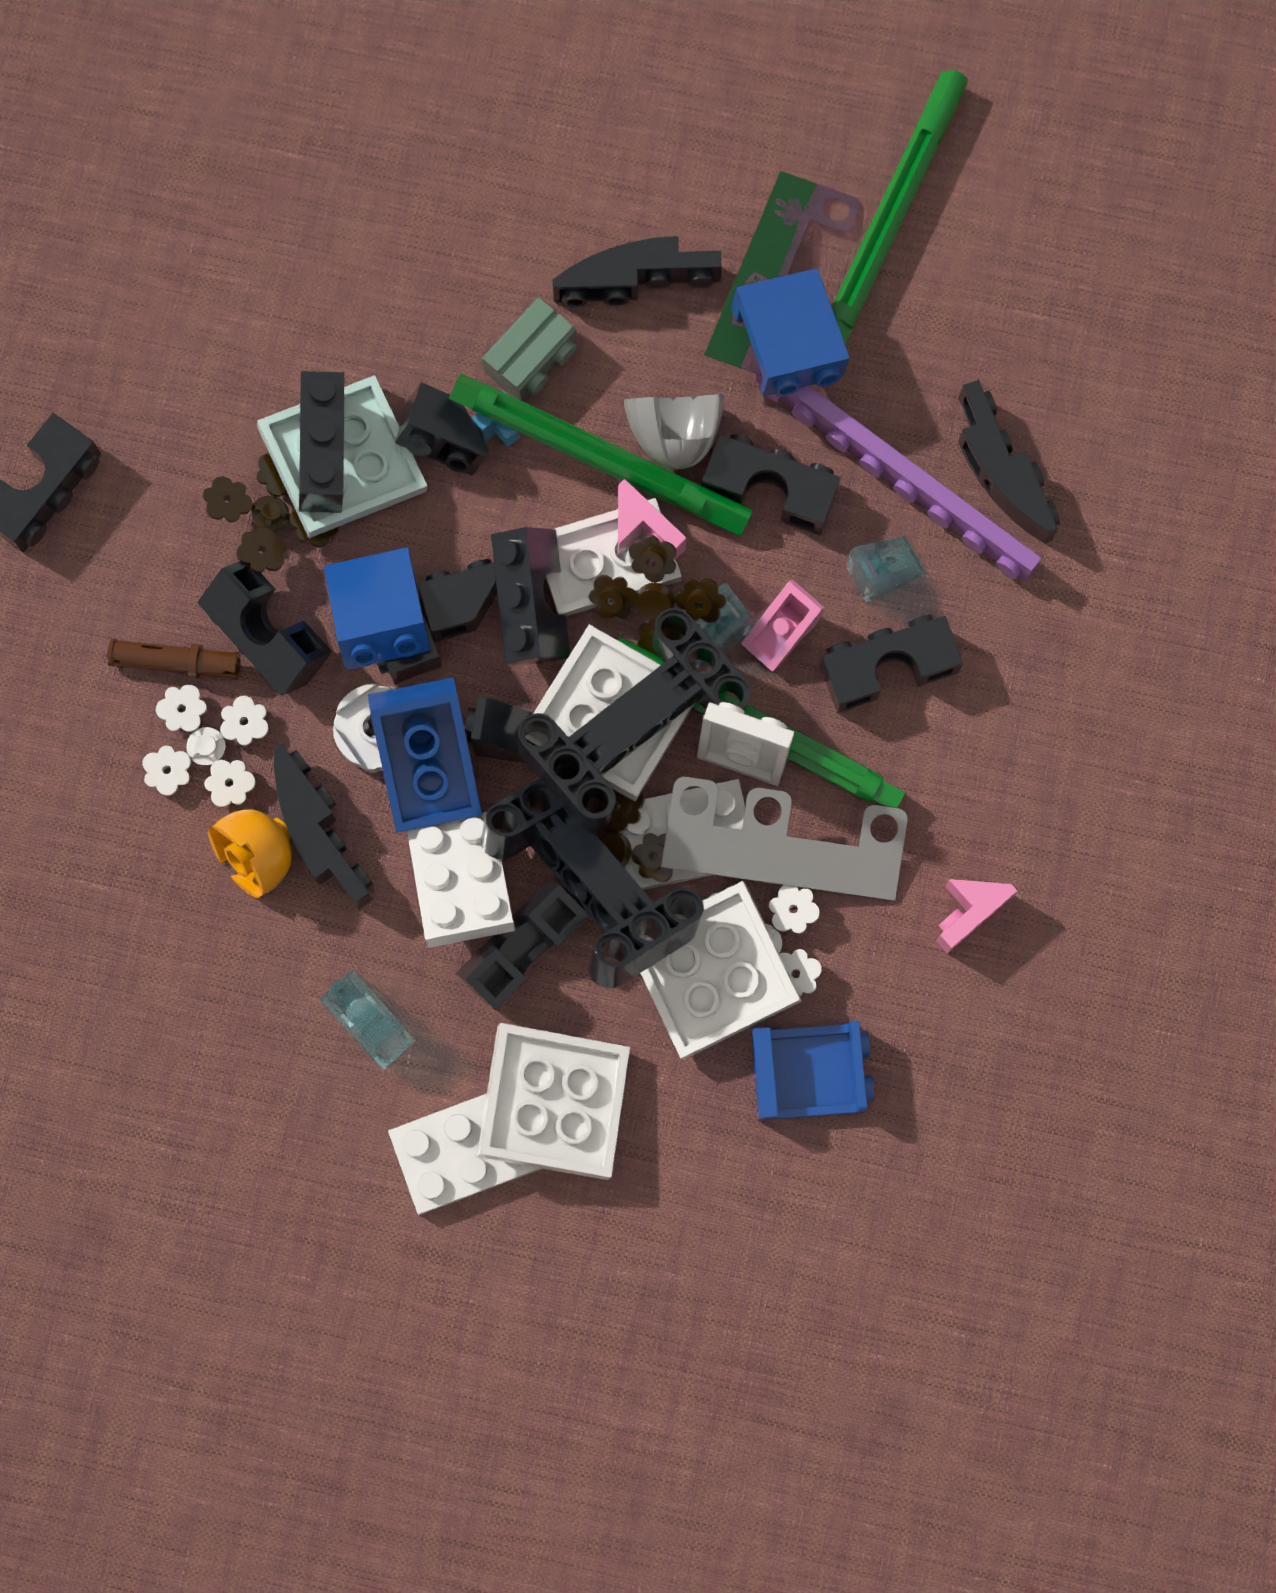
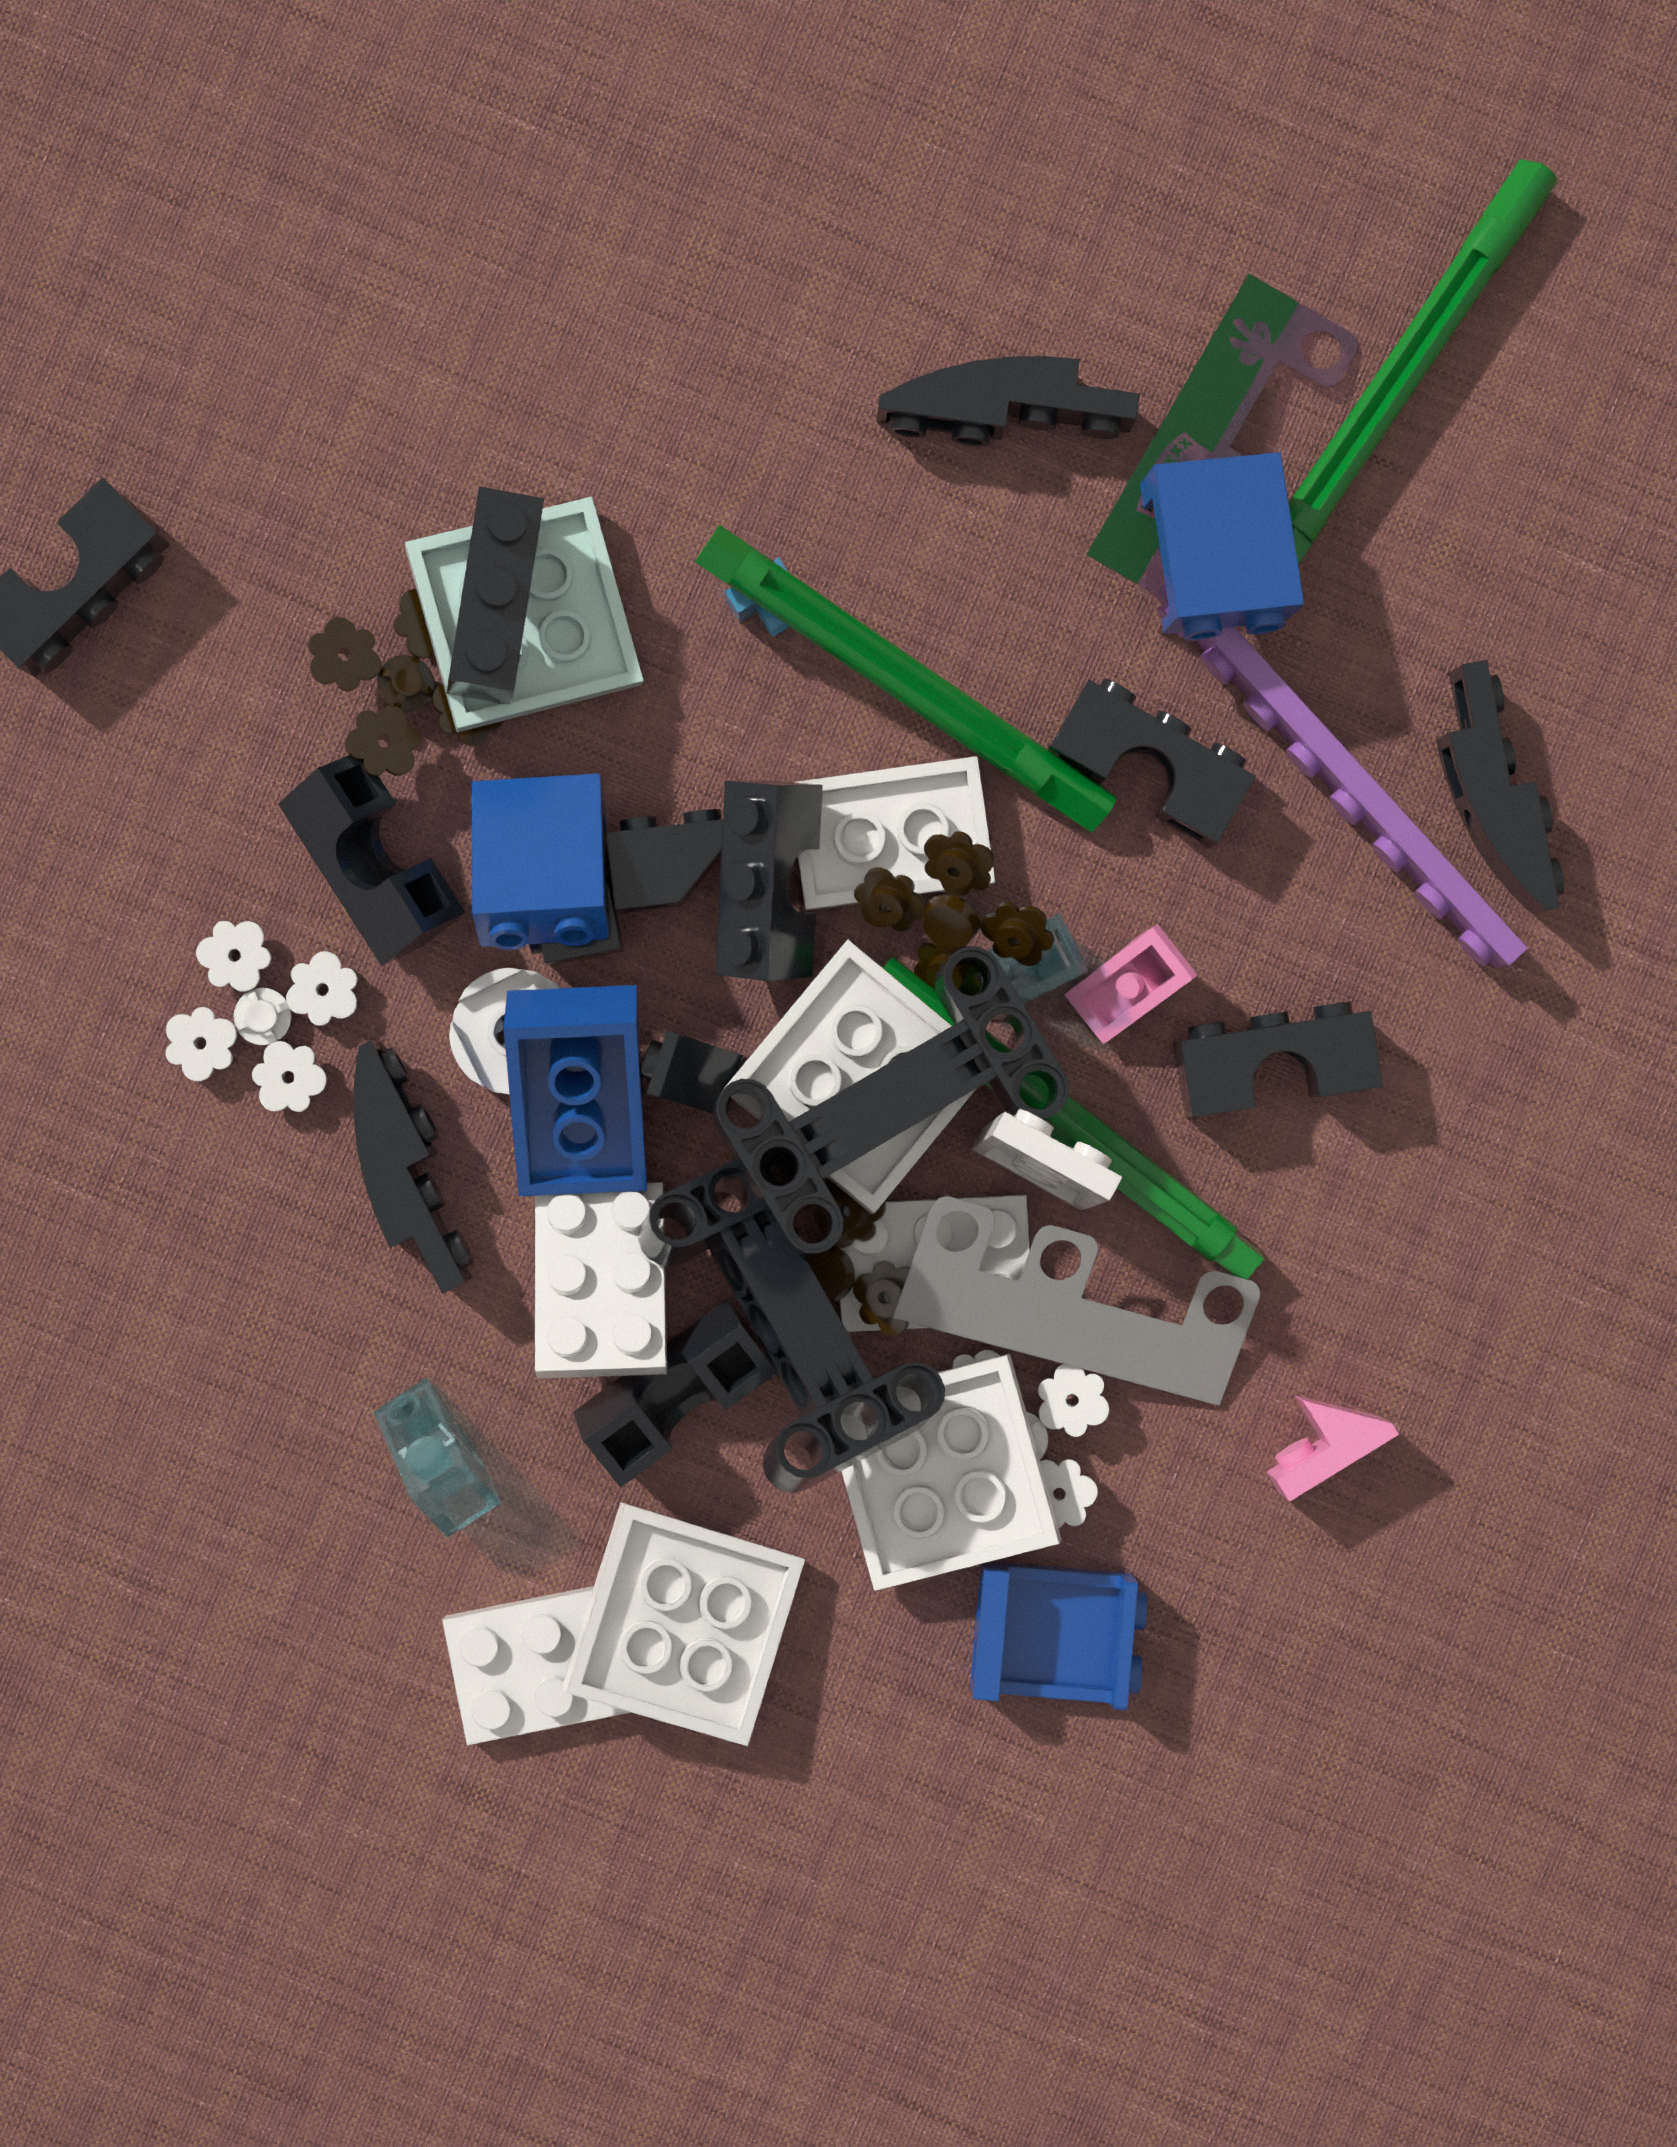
camera: 15 degrees right, 10 degrees up
(191, 660) = (259, 886): reddish brown pin -> none
(255, 849) = (310, 1186): light orange cylinder -> none
(441, 431) = (675, 601): black slope -> none
(530, 350) = (829, 497): sand green brick -> none
(640, 516) = (945, 784): bright pink slope -> none
(675, 430) = (1025, 656): light grey hair -> none
(883, 567) = (1294, 915): clear light blue slope -> none

